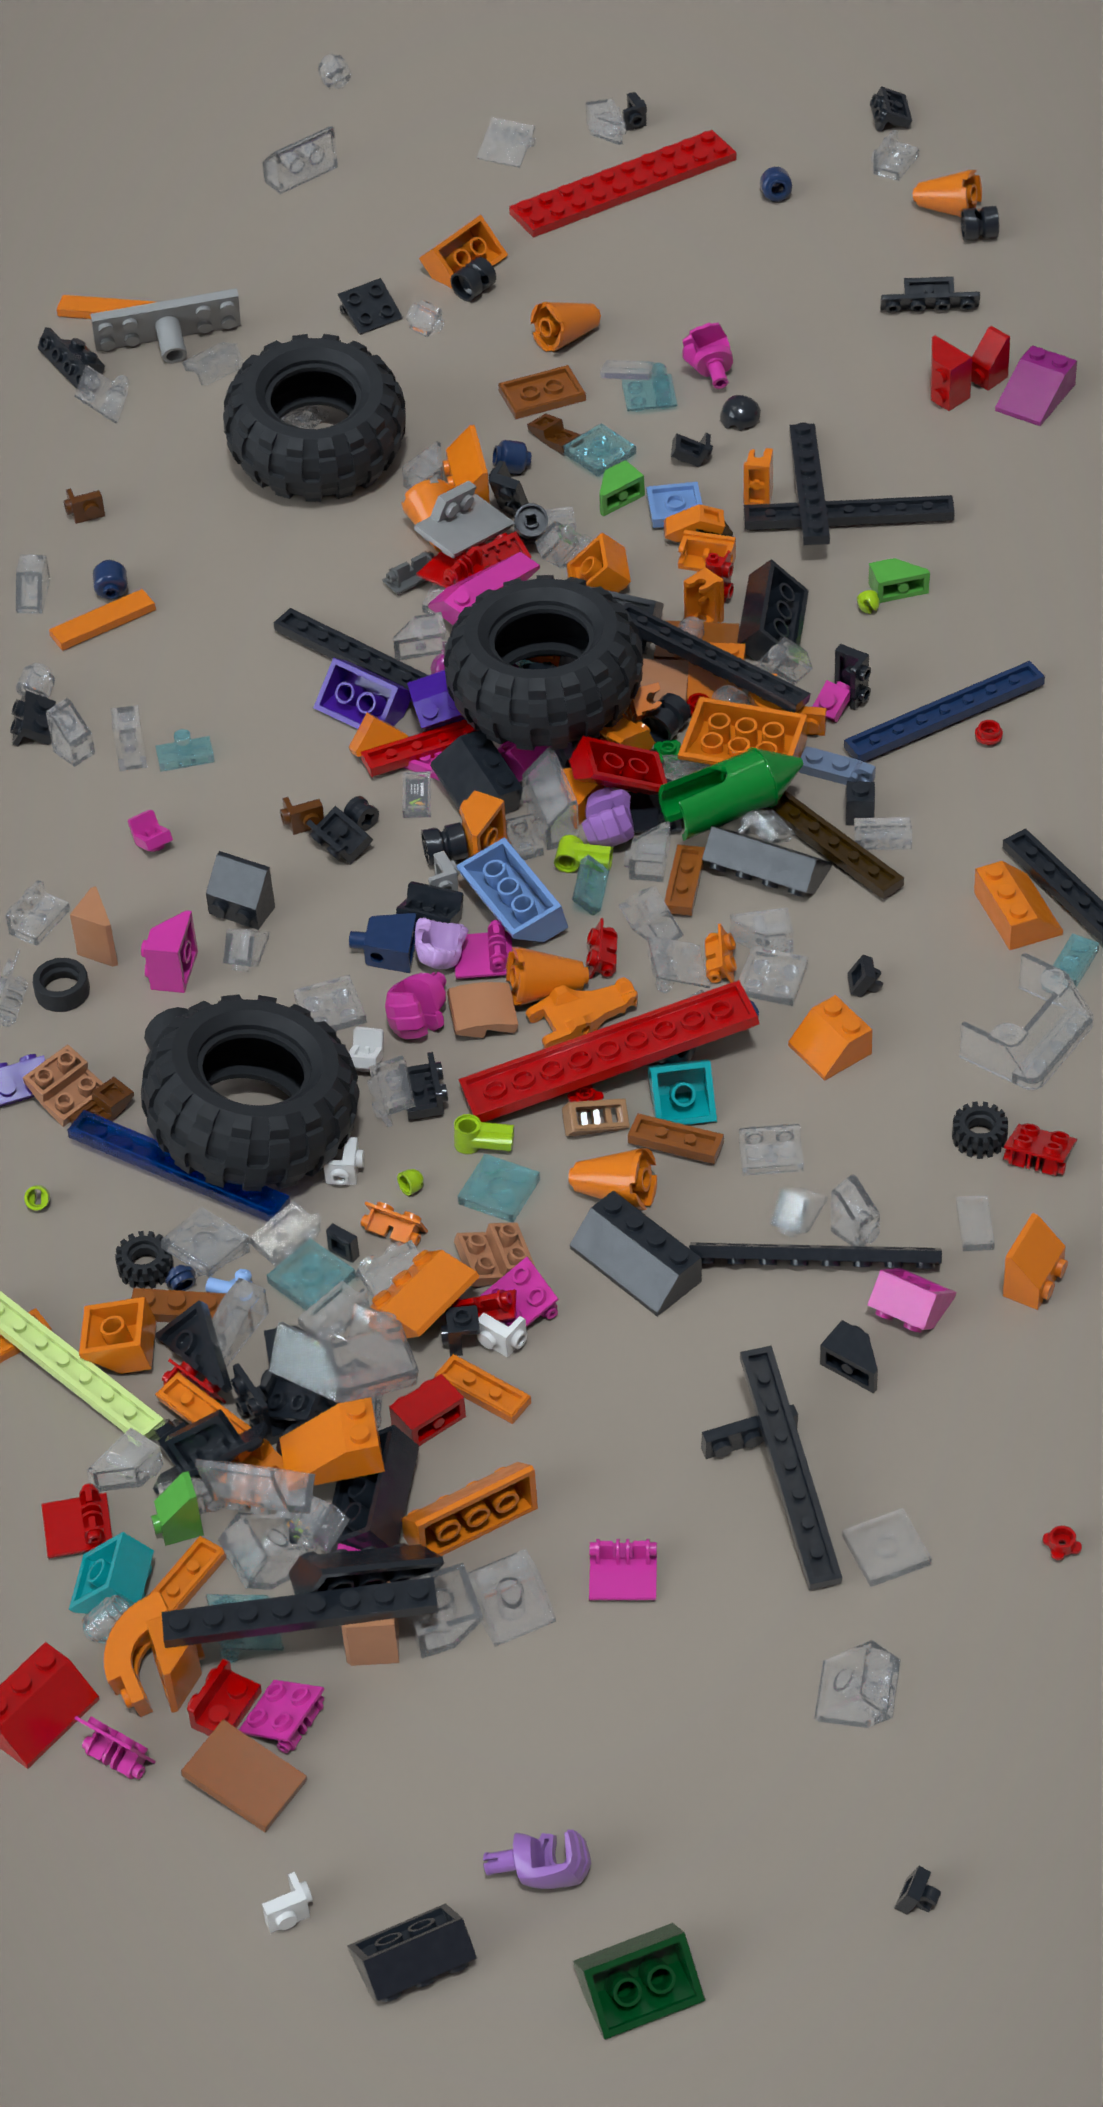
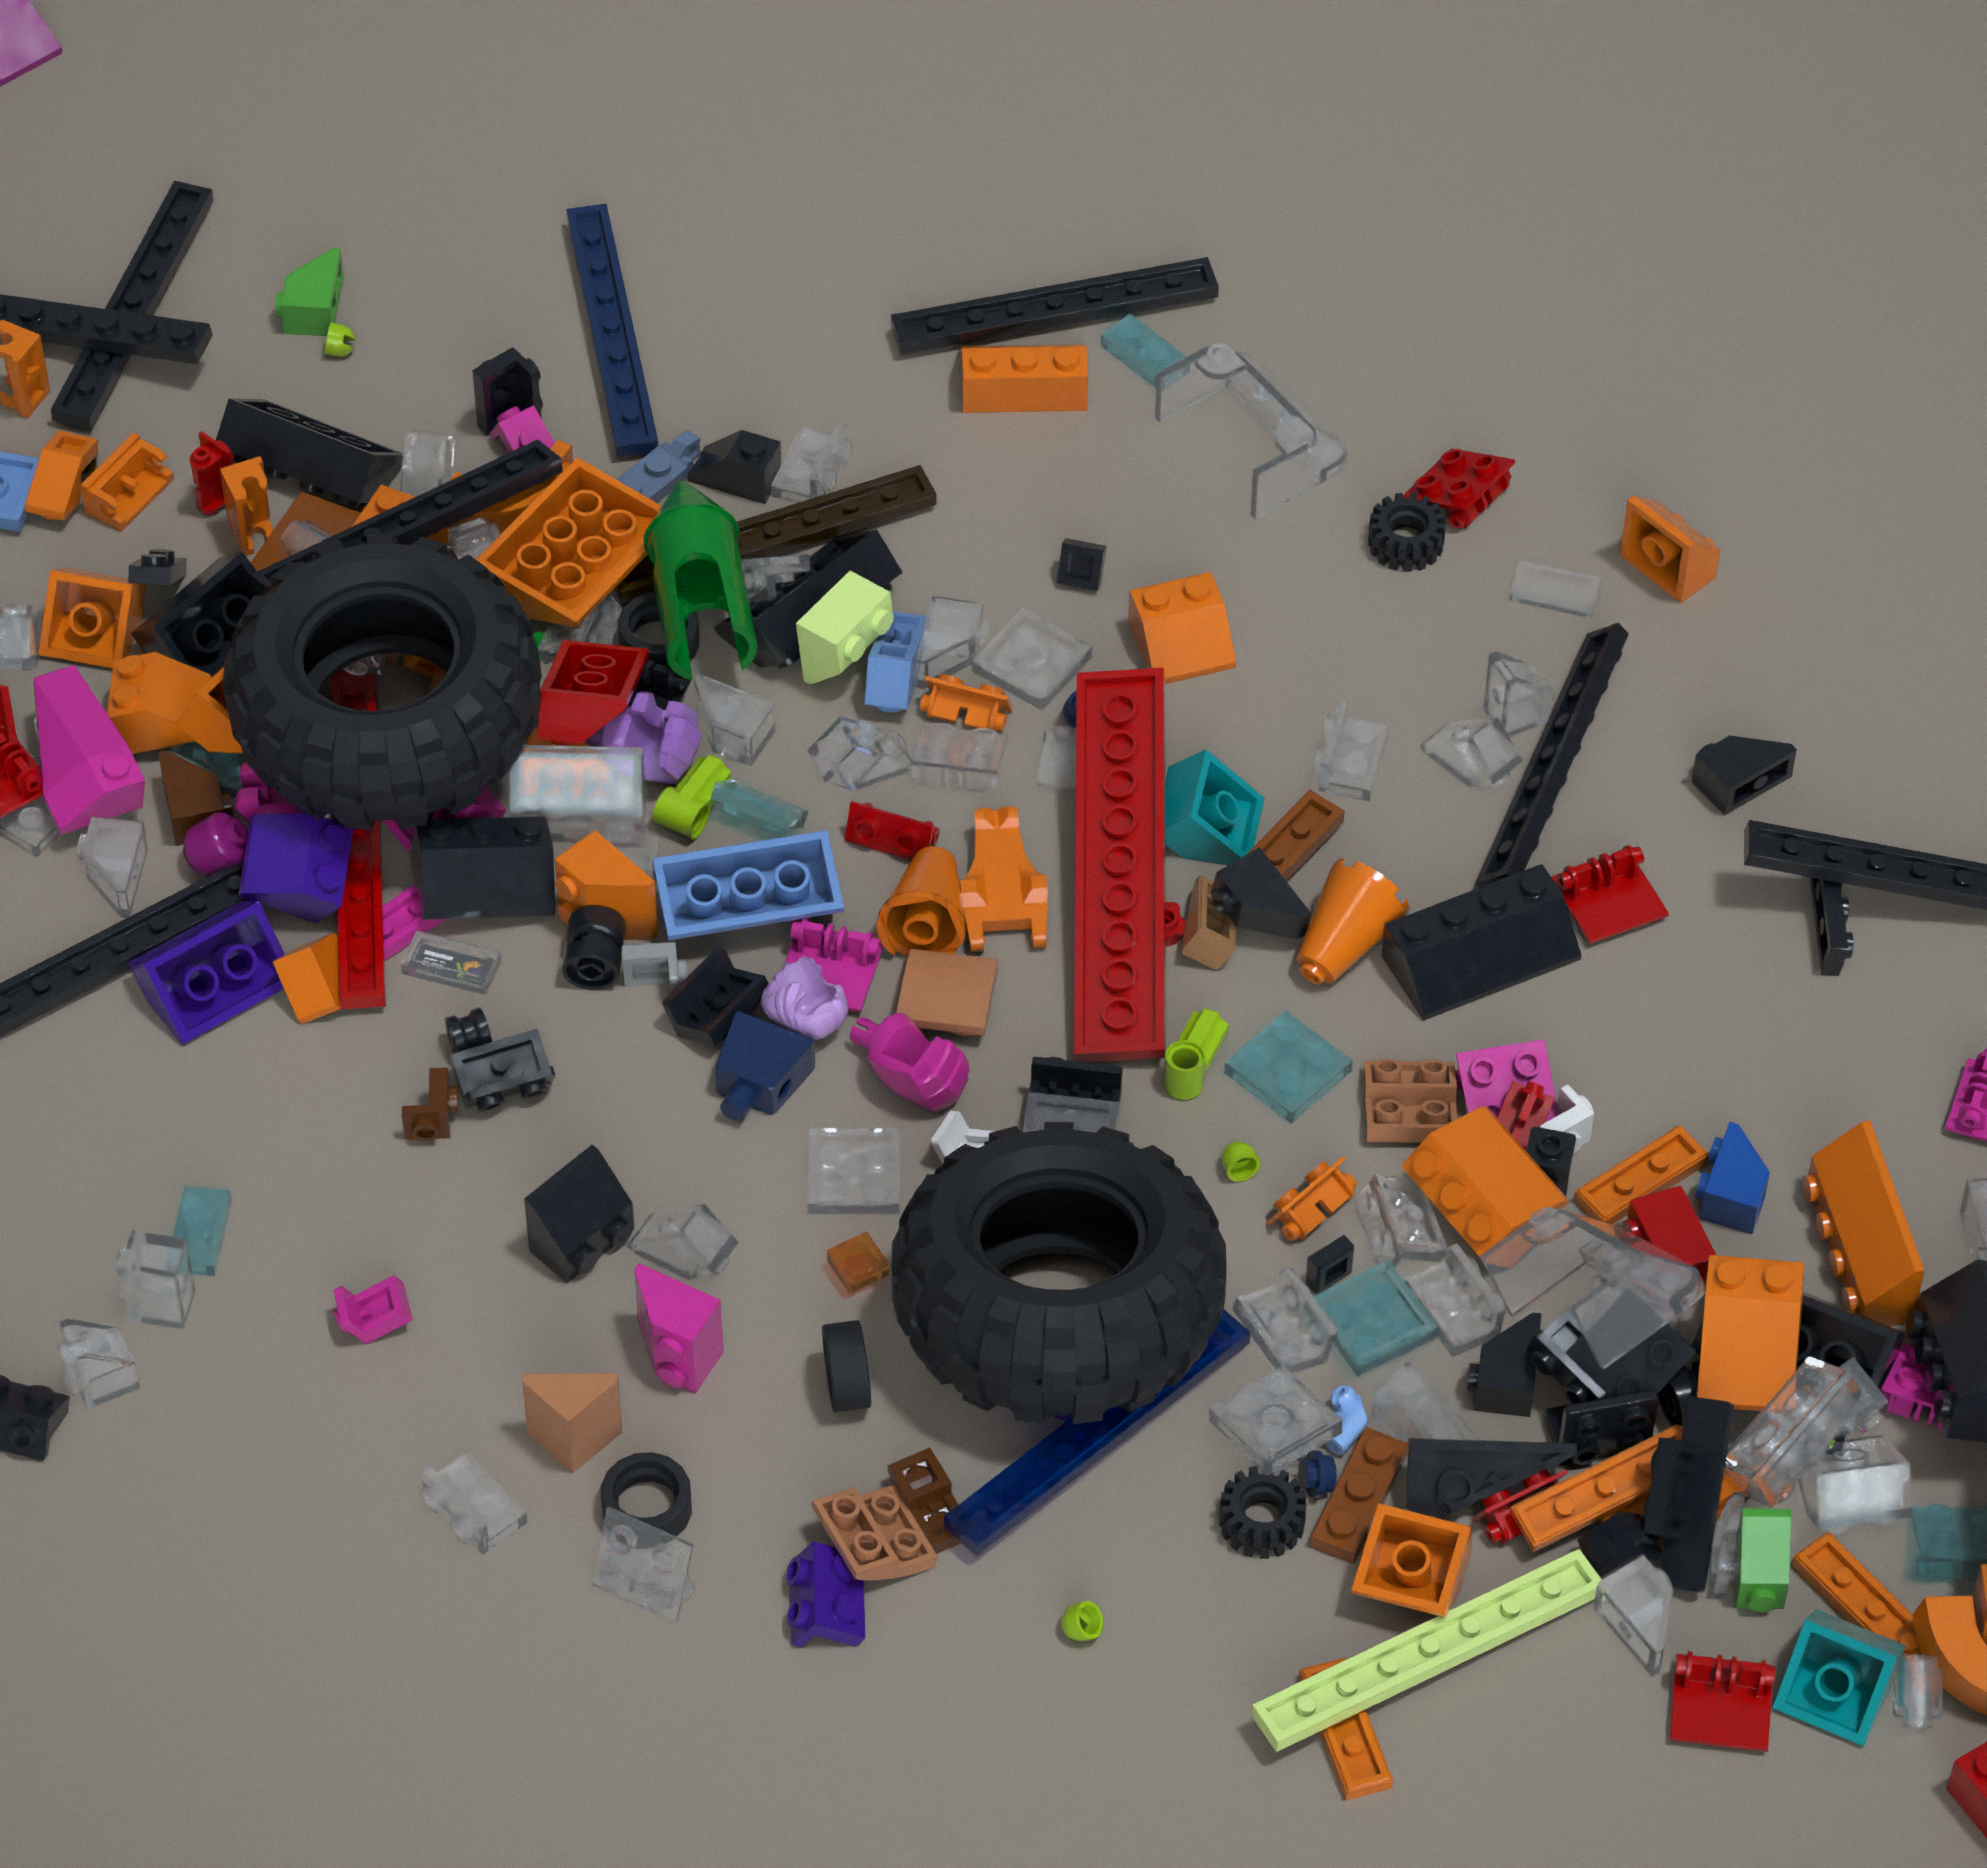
camera: 75 degrees left, 5 degrees up
(492, 1433) = (1736, 1184): none -> blue slope
(613, 1122) = (1259, 897): none -> black slope
(639, 581) = (157, 568): none -> black plate
(684, 879) = (797, 697): dark orange plate -> none
(712, 1313) = (1610, 894): none -> red hinge
(719, 903) = (893, 664): none -> medium blue slope
(733, 868) = (842, 626): none -> yellowish green slope
(910, 1299) = (1670, 684): slope -> none
(988, 732) = (676, 298): red plate -> none

